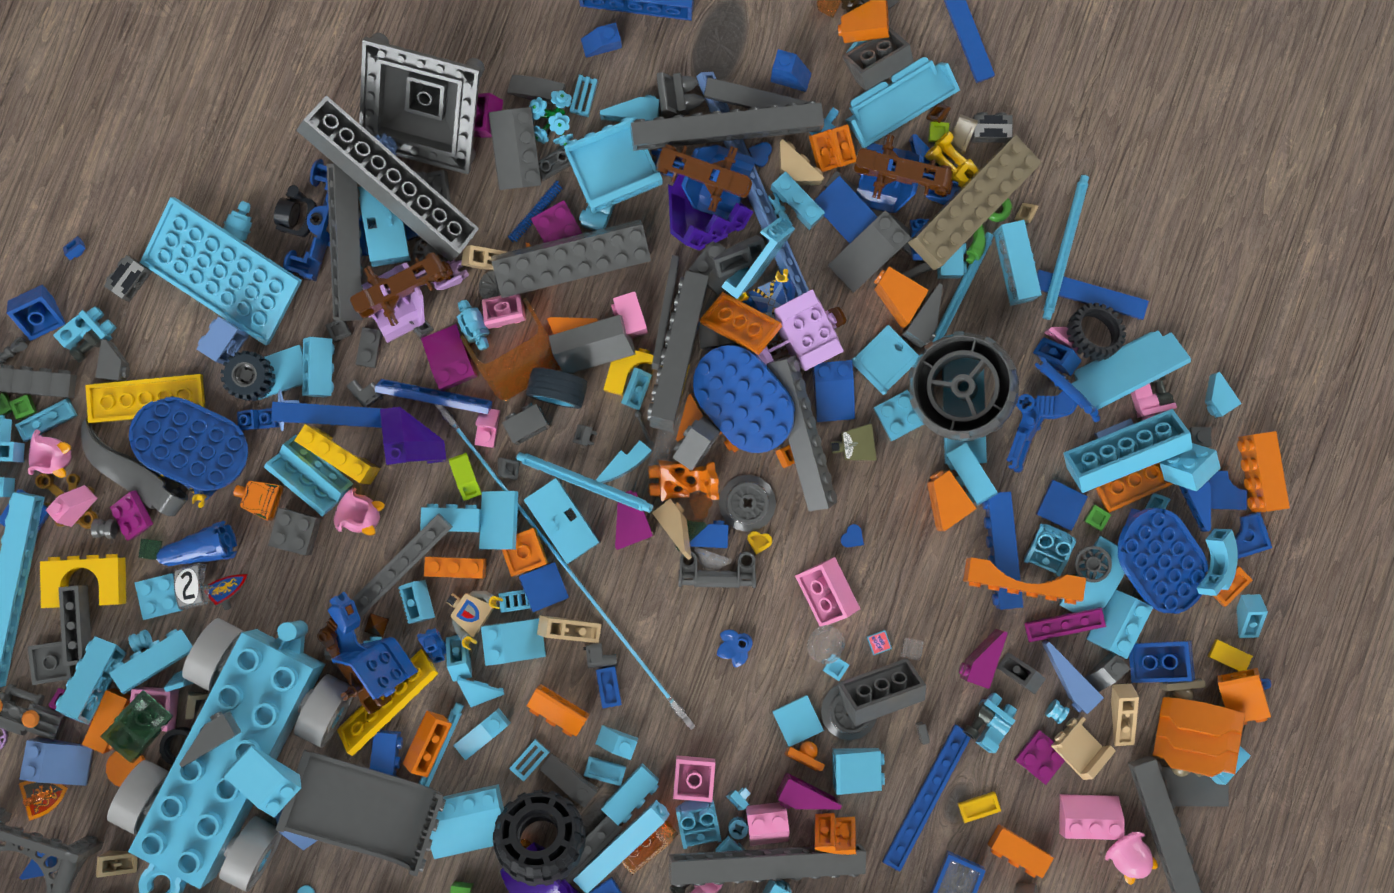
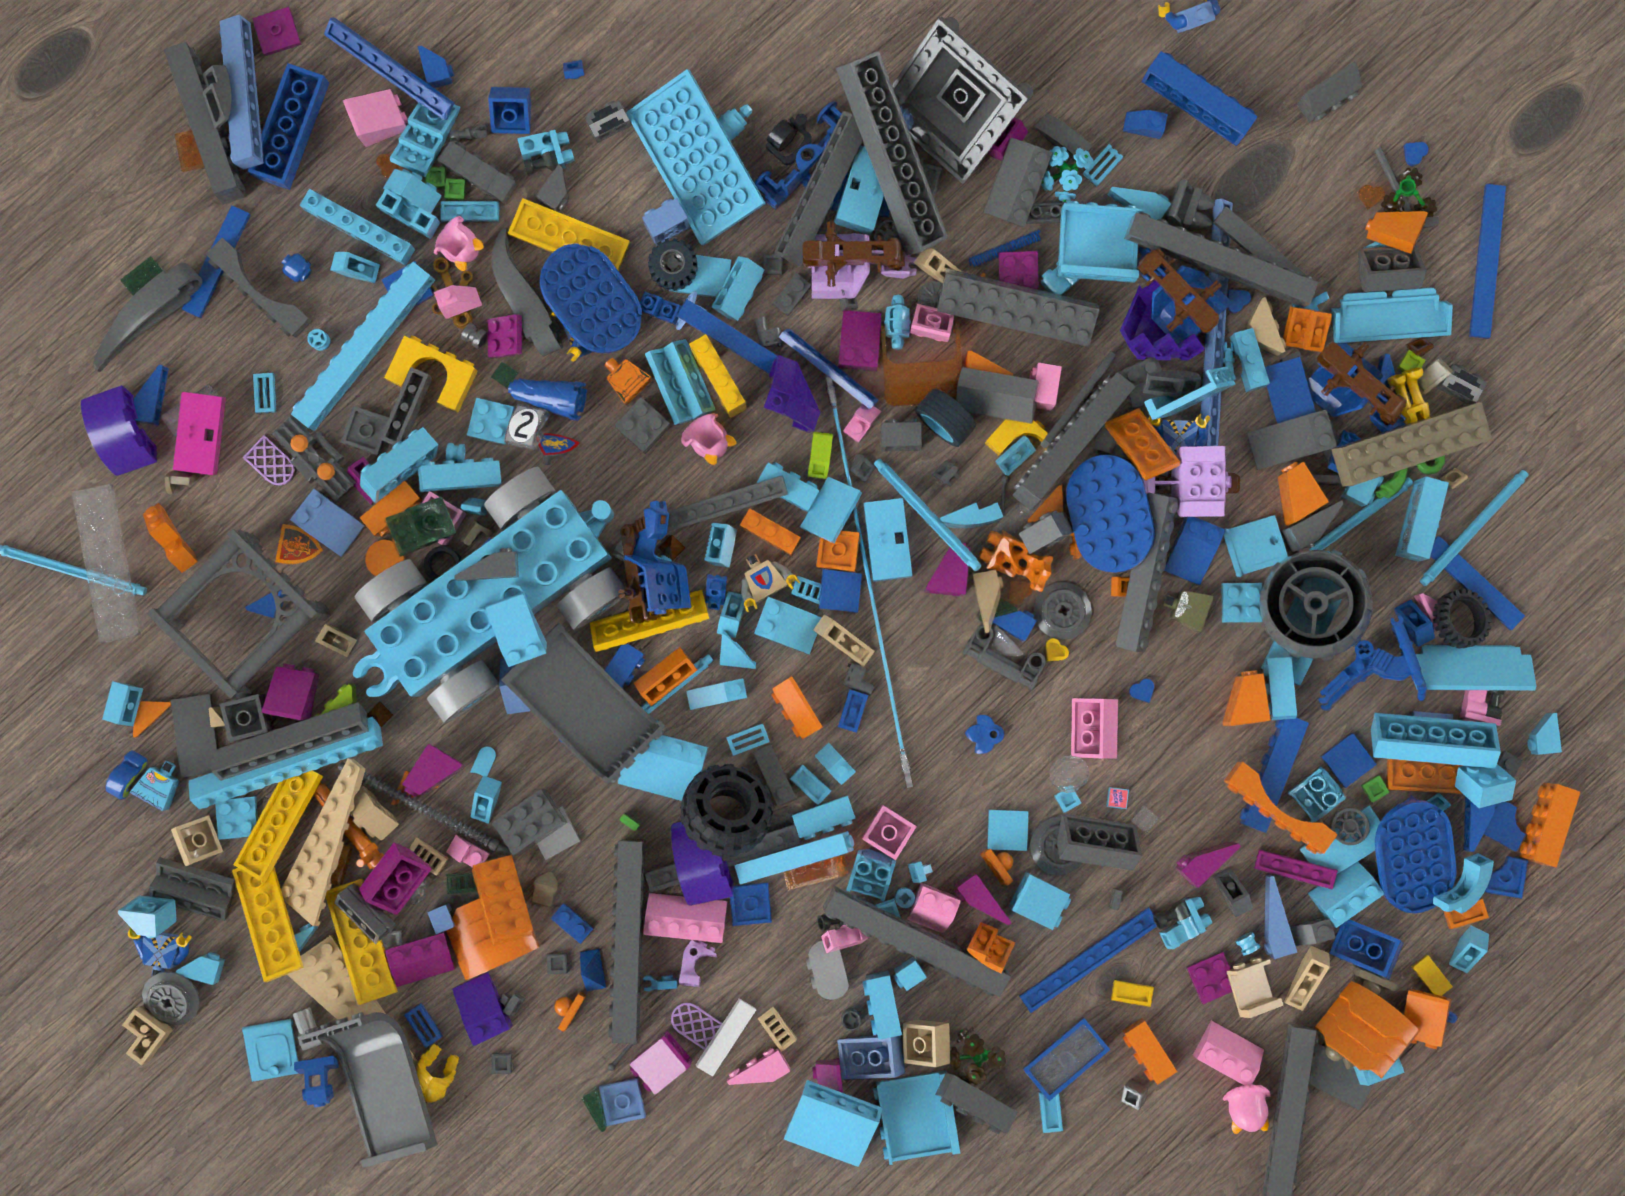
camera: 30 degrees right, 0 degrees up
(790, 71) = (1304, 239): blue slope -> none

